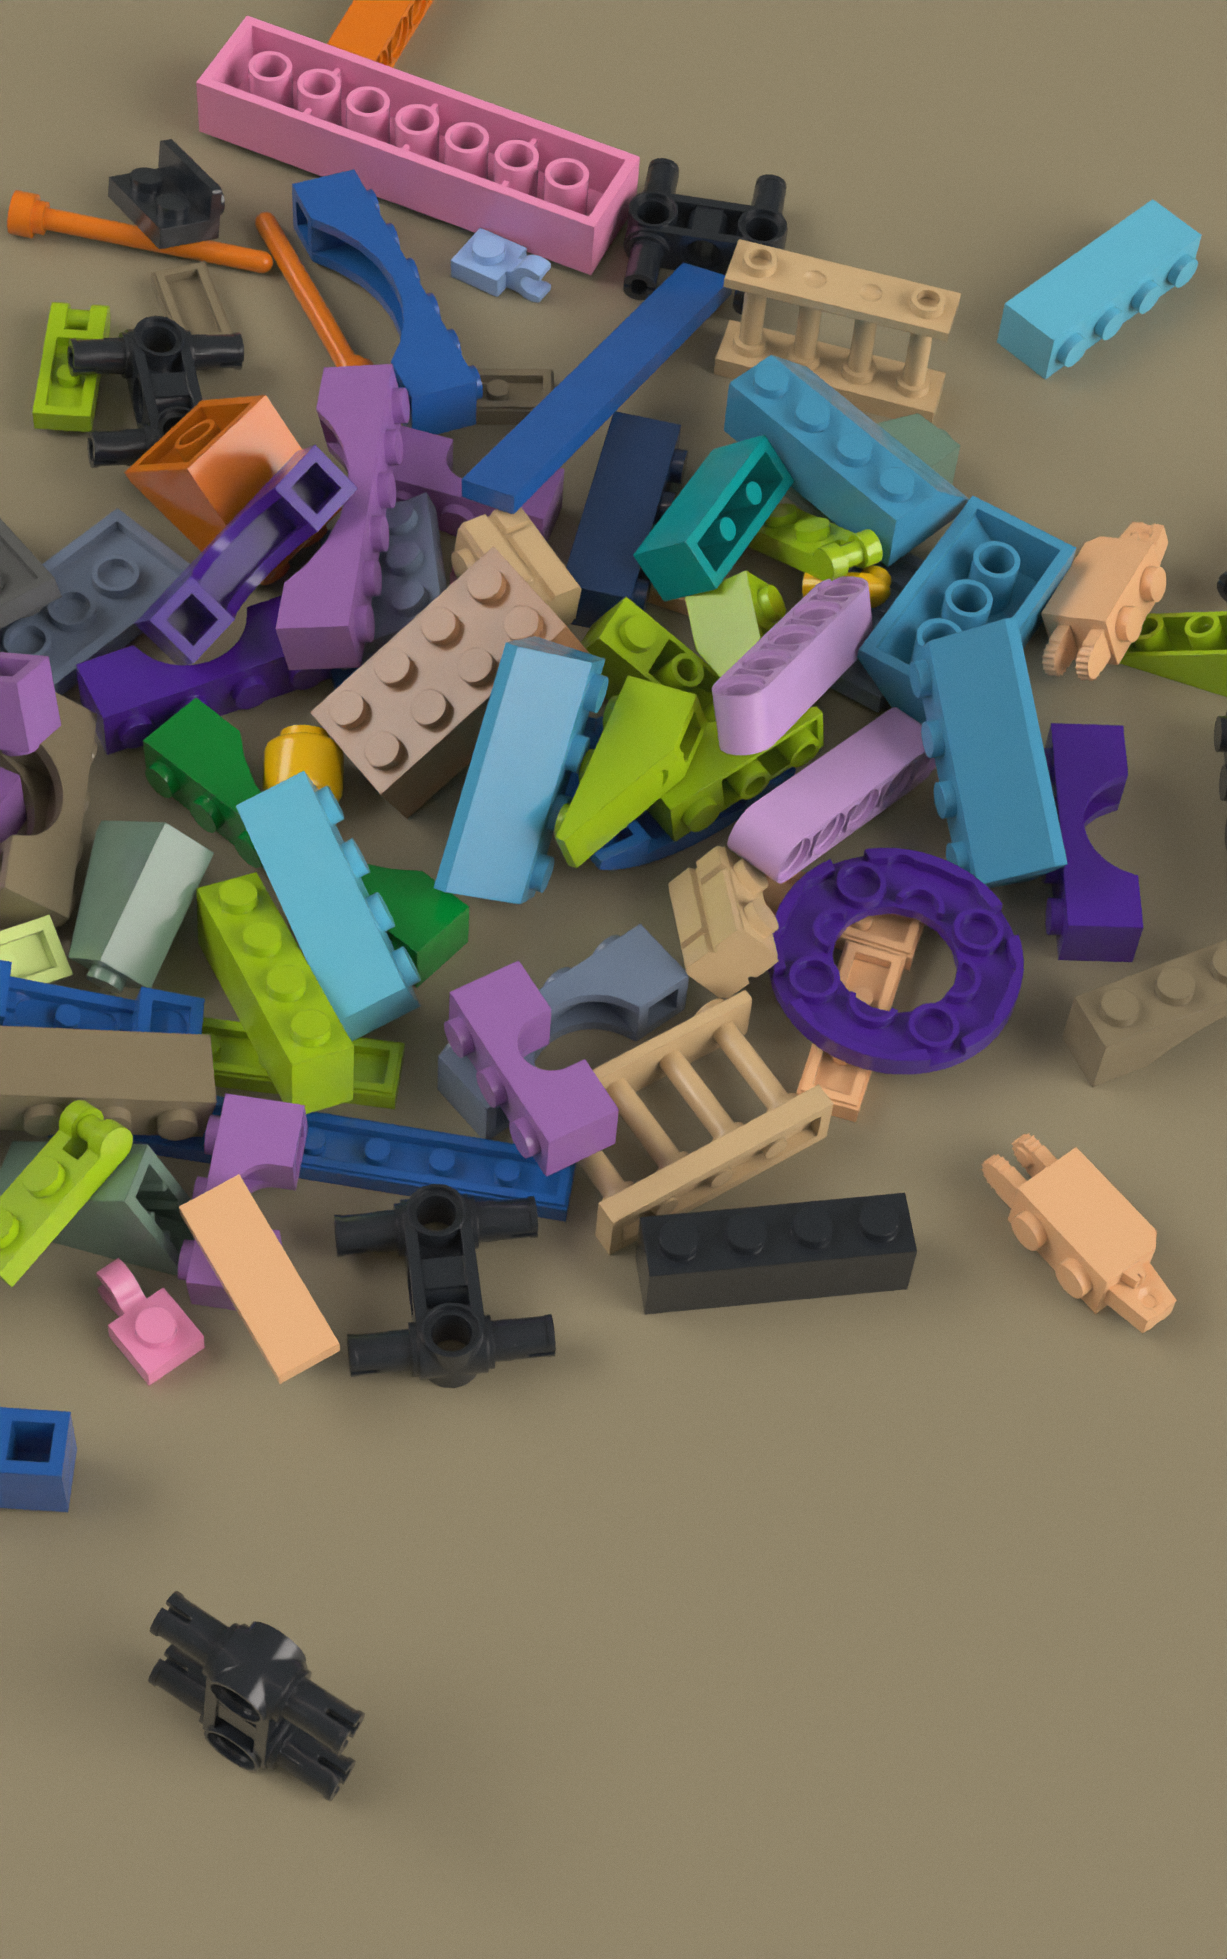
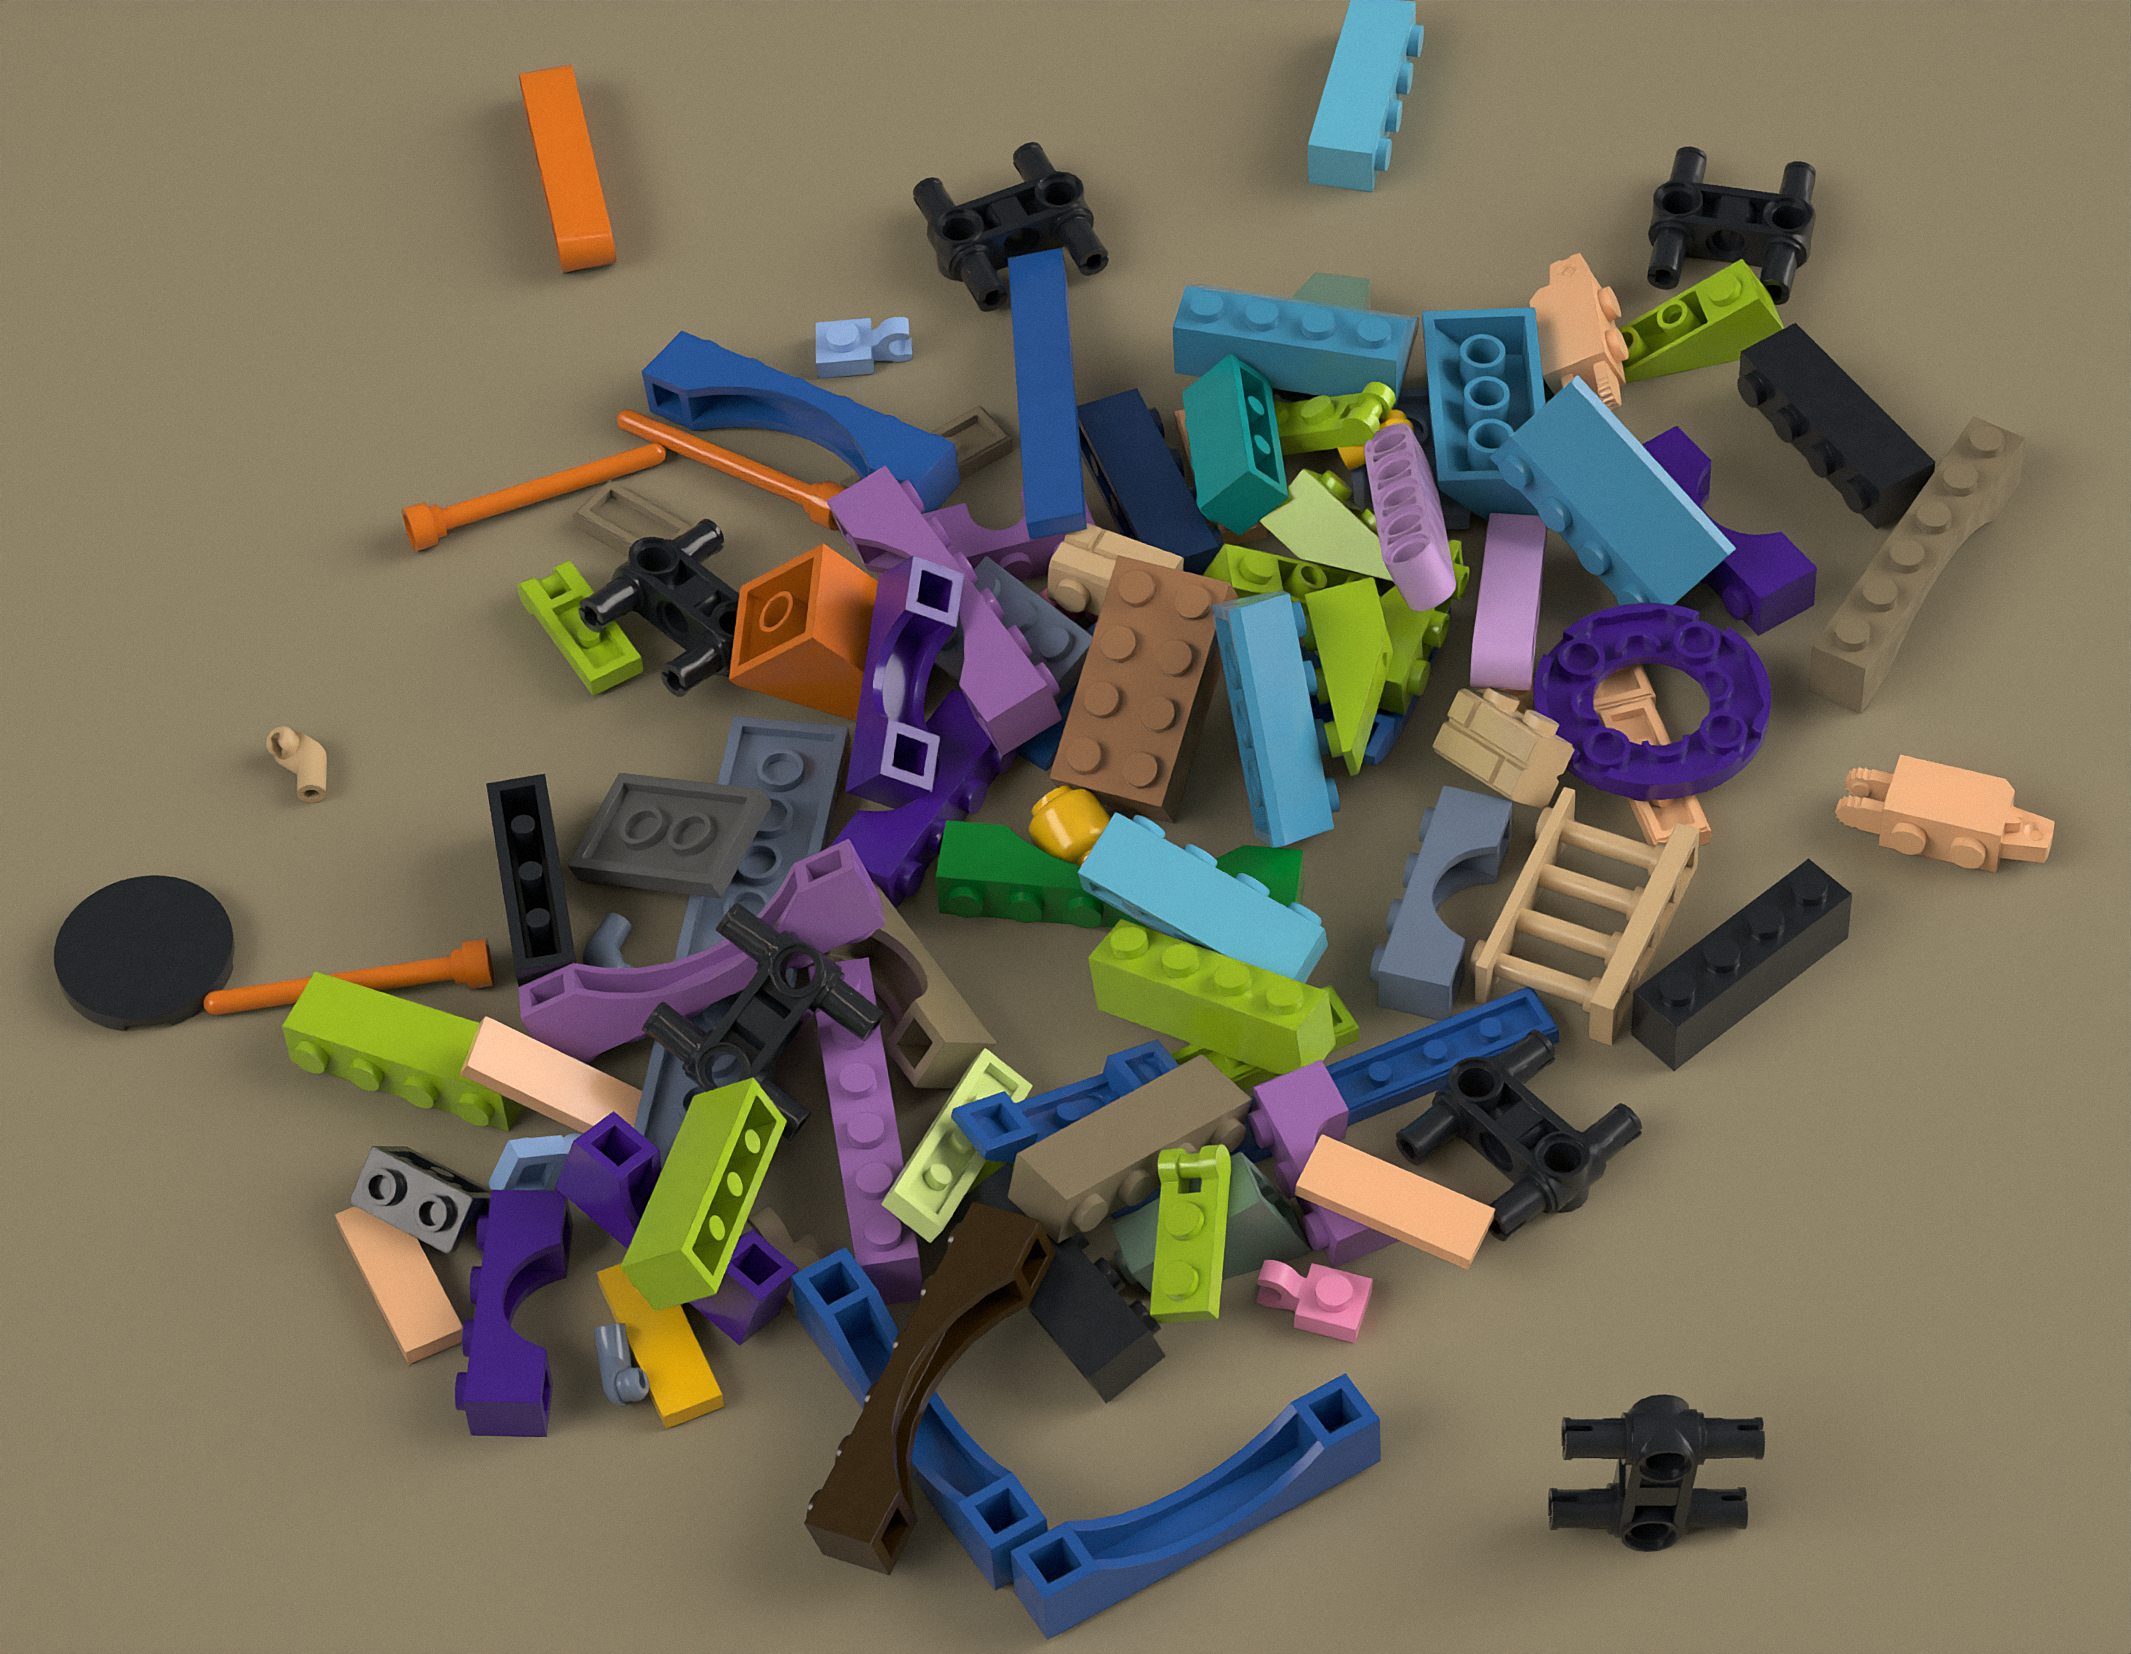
camera: 25 degrees left, 5 degrees down
(134, 901) = (1038, 997): sand green slope -> none
(170, 203) = (540, 441): black bracket -> none
(418, 143) = (709, 278): bright pink brick -> none
(550, 1113) = (1505, 955): medium lavender arch -> none
(869, 297) = (1261, 266): tan fence -> none

